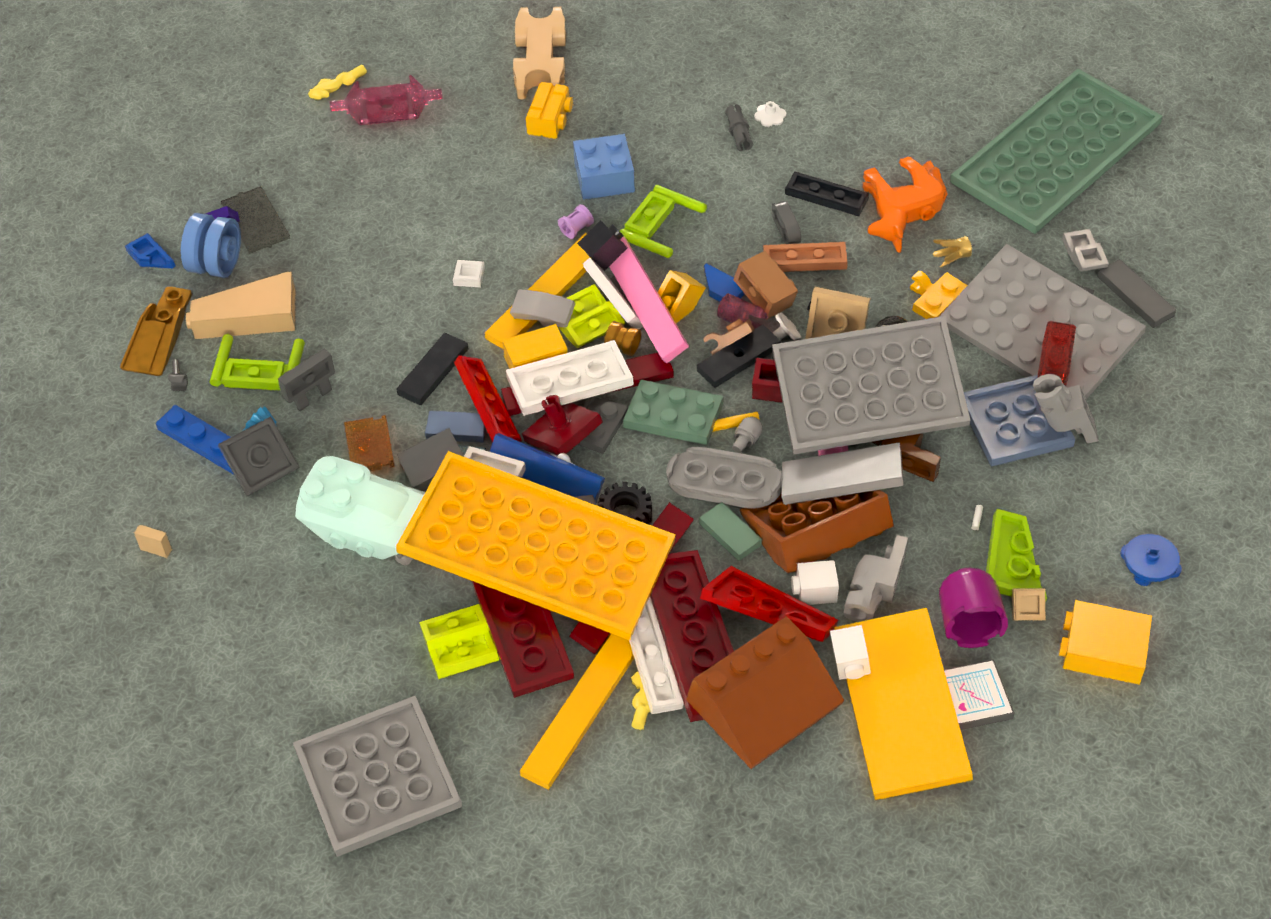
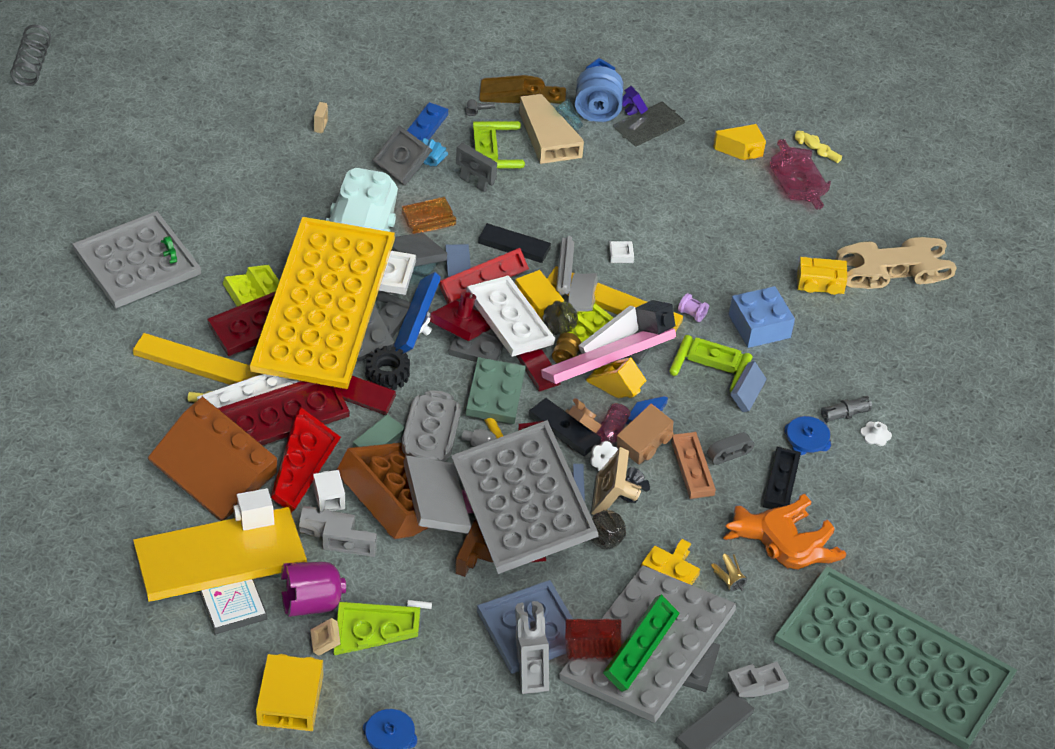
camera: 75 degrees right, 5 degrees down
(217, 285) = (569, 113): none -> clear light blue tile
(321, 138) = (740, 142): none -> yellow slope
(372, 725) = (171, 250): none -> green piece
(493, 319) = (565, 266): none -> light grey axle
(583, 330) = (560, 317): none -> clear smoke piece
(701, 195) = (748, 386): none -> sand blue tile
(769, 163) = (808, 435): none -> blue piece
(1050, 310) = (641, 643): none -> green plate

